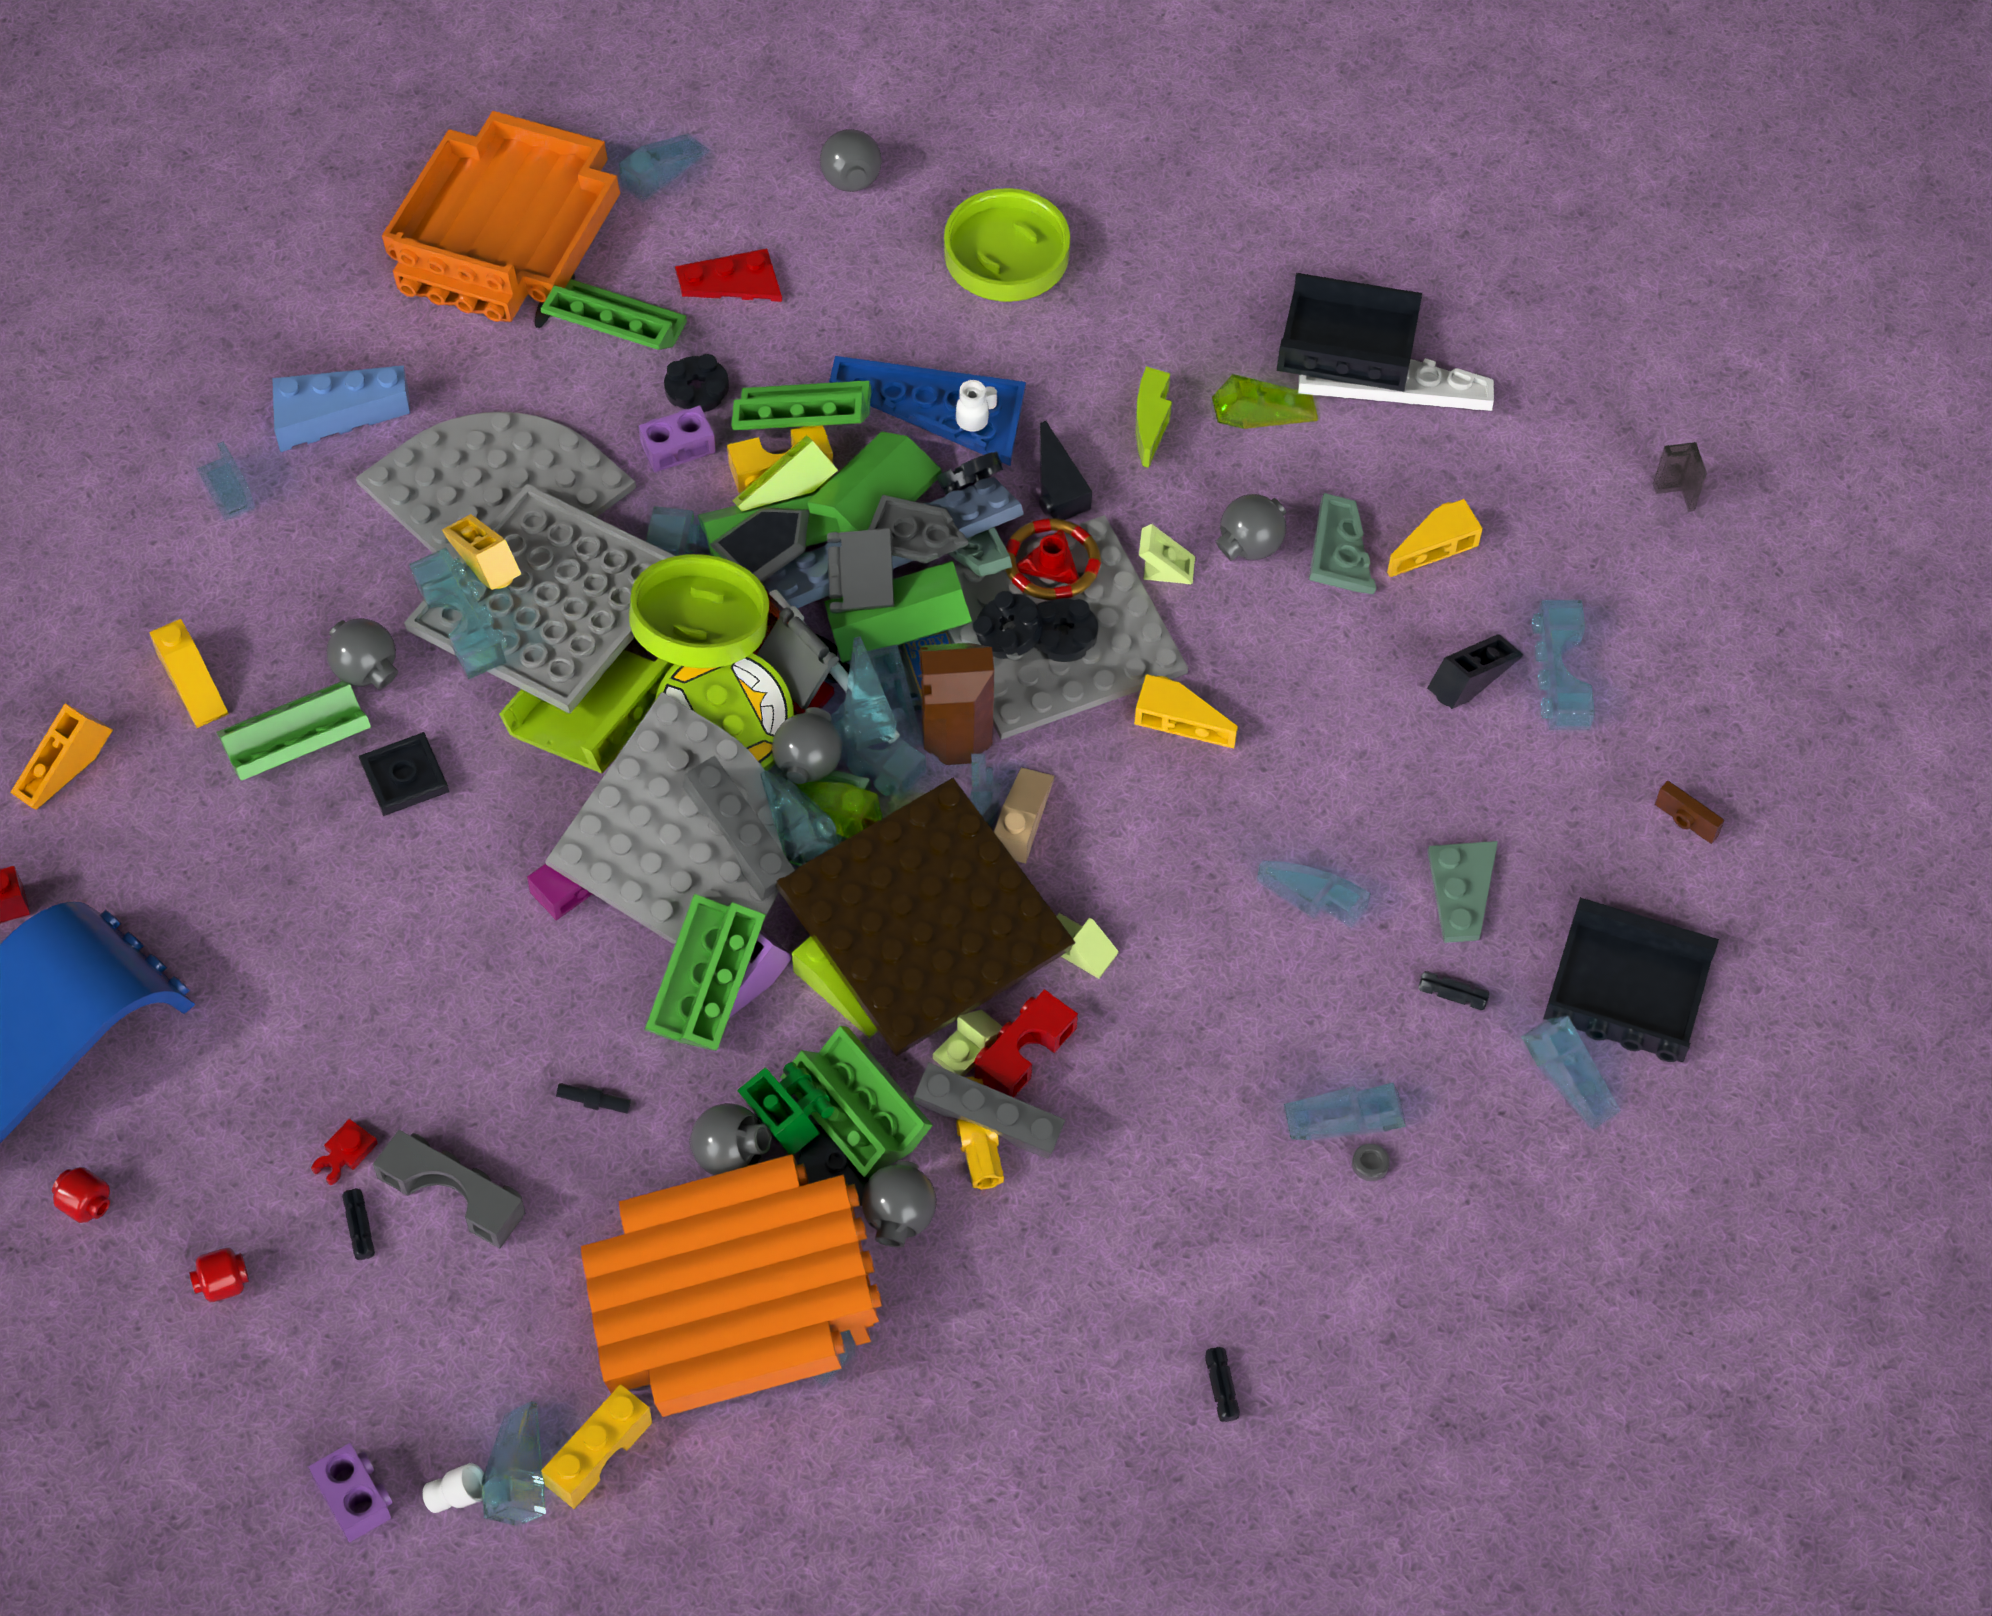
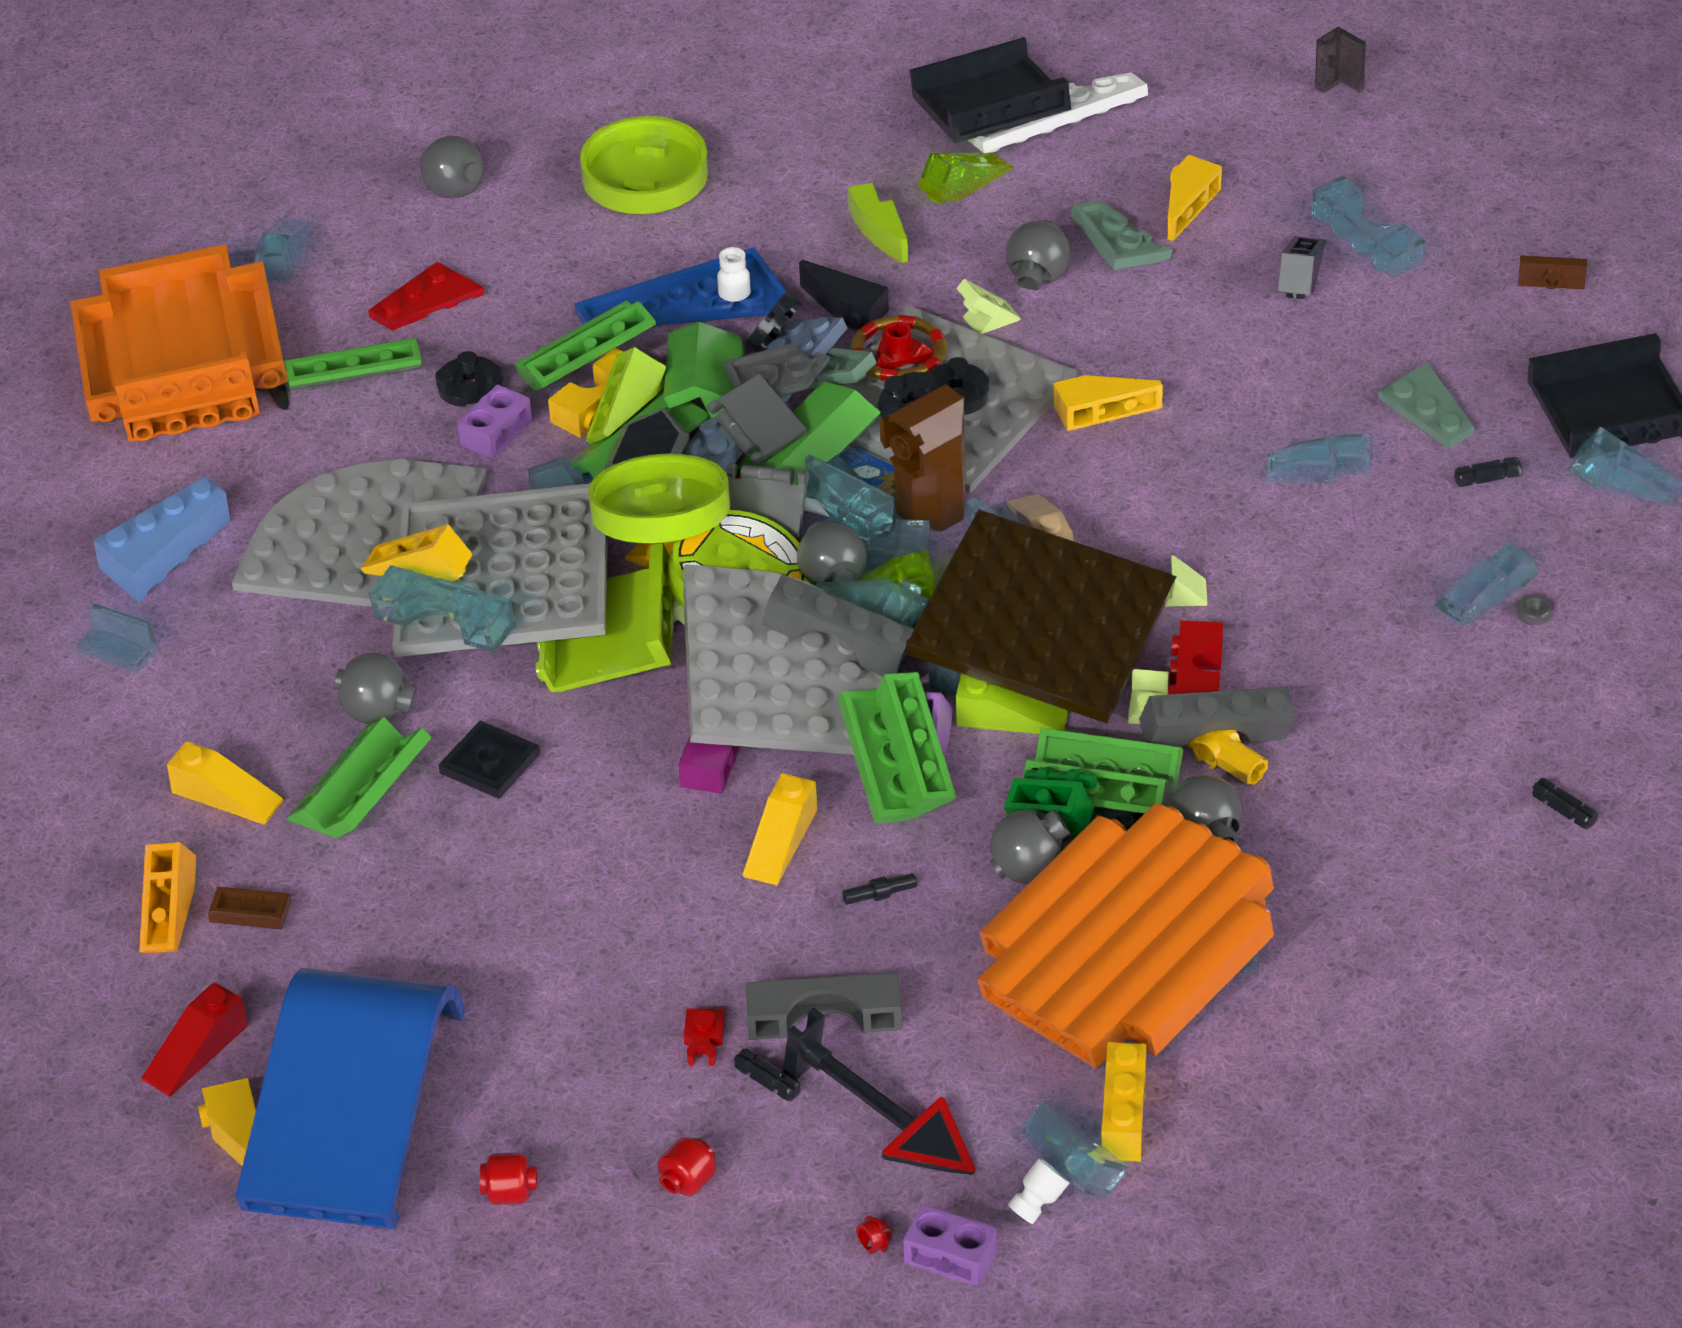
camera: 30 degrees left, 15 degrees down
(115, 804) = (249, 908): none -> reddish brown plate
(306, 1439) = (875, 1231): none -> red plate
(426, 1374) = (925, 1142): none -> black piece
(561, 990) = (781, 828): none -> yellow slope

